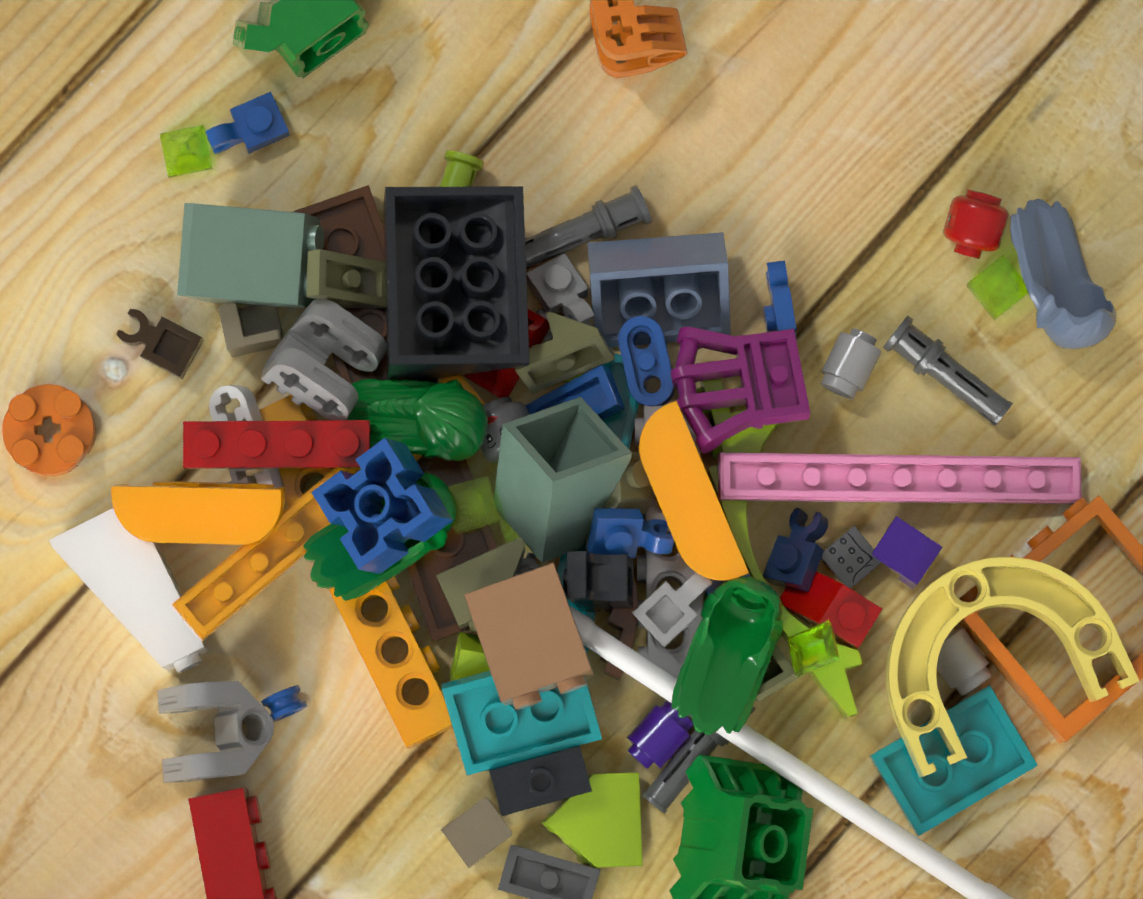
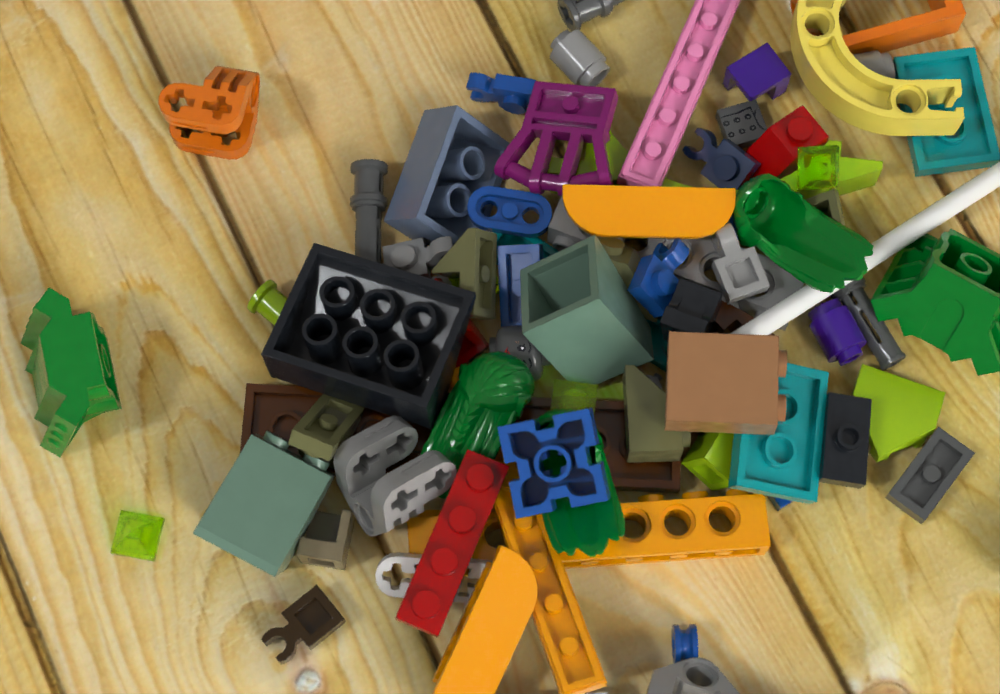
camera: 70 degrees left, 10 degrees down
(255, 124) = (142, 463): blue plate -> none
(477, 832) = (866, 518): dark tan panel -> none

